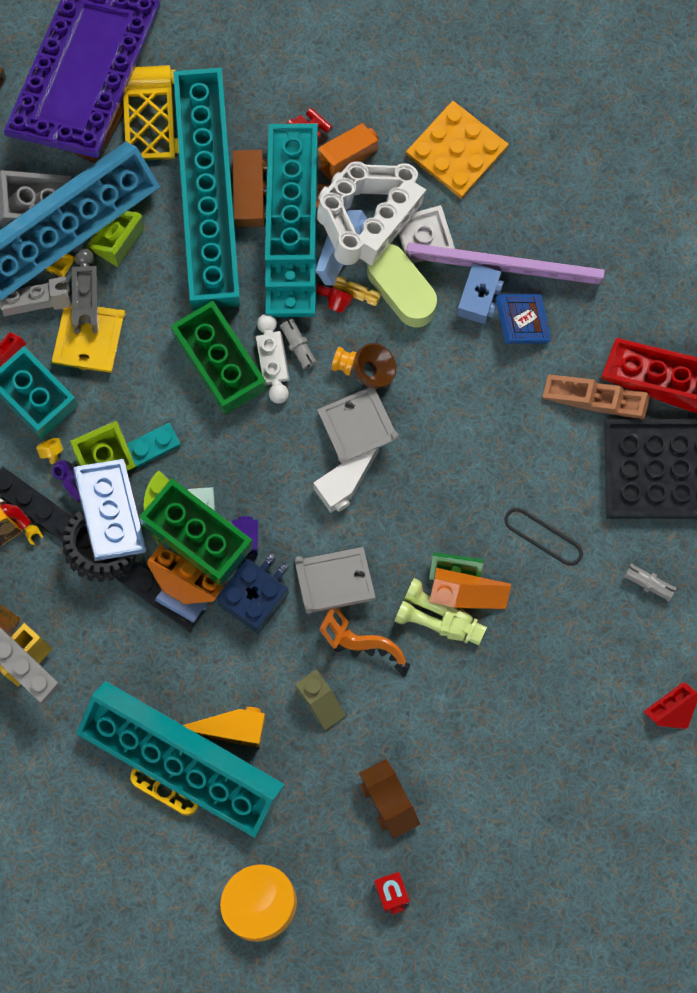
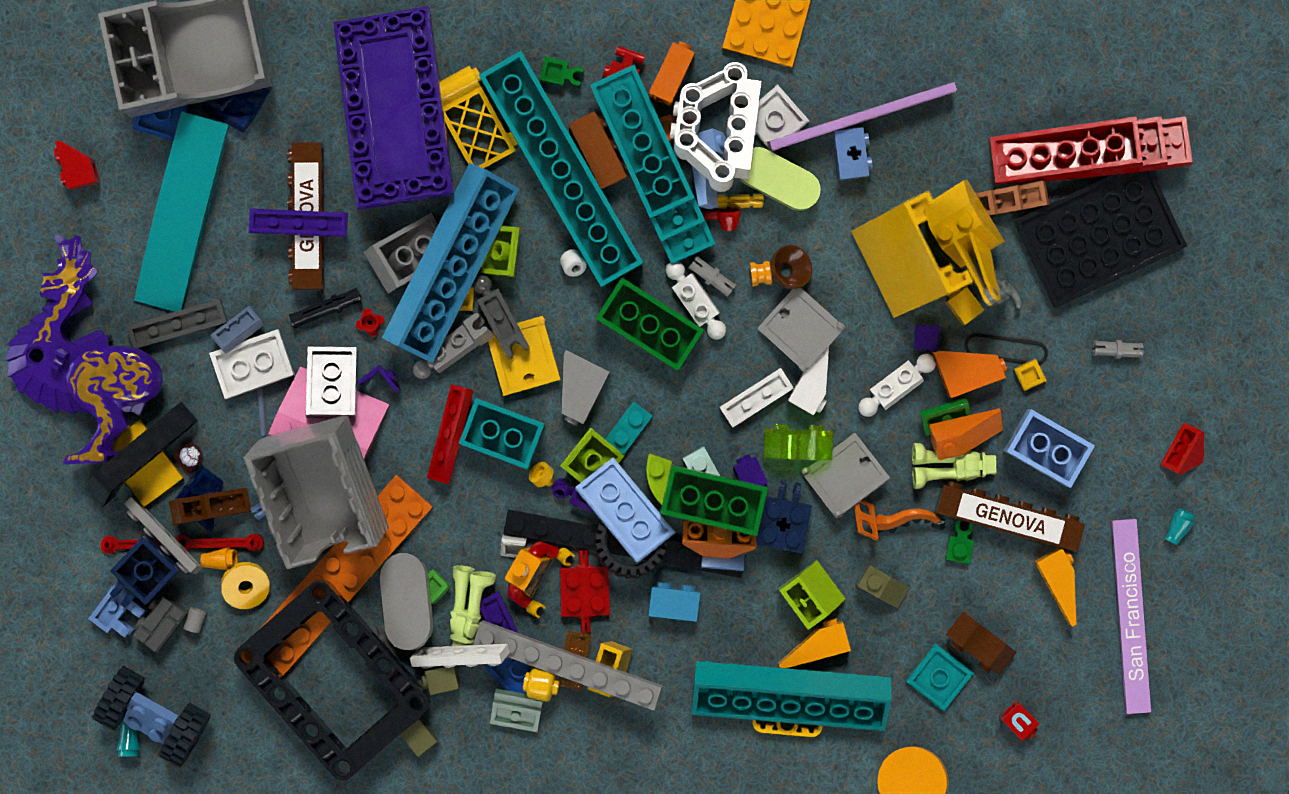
camera: 25 degrees left, 15 degrees up
(35, 575) = (584, 591): none -> red plate
(113, 622) = (674, 602): none -> dark azure brick
(126, 386) = (580, 387): none -> light grey slope
(176, 274) = (573, 262): none -> white piece
(247, 106) = (556, 72): none -> green plate
(248, 675) = (812, 594): none -> lime slope
(285, 471) = (756, 397): none -> white plate
(311, 532) = (798, 444): none -> clear neon green brick
(334, 815) = (939, 677): none -> teal tile
(412, 698) = (959, 547): none -> green plate
(423, 519) = (897, 385): none -> white plate
(472, 490) = (926, 337): none -> dark purple tile
(473, 691) = (1009, 517): none -> brick
(479, 413) = (903, 260): none -> yellow windscreen
(495, 763) = (1060, 579): none -> light orange slope
(498, 536) = (968, 371): none -> orange slope
(521, 475) = (964, 305): none -> yellow brick
(523, 319) = (901, 160): blue tile -> none
(541, 641) = (1049, 448): none -> light blue brick
(548, 844) = (1131, 616): none -> lavender tile
(554, 411) = (967, 235): none -> yellow slope
(555, 568) = (1030, 374): none -> yellow tile
(637, 776) = (1180, 525): none -> teal cone

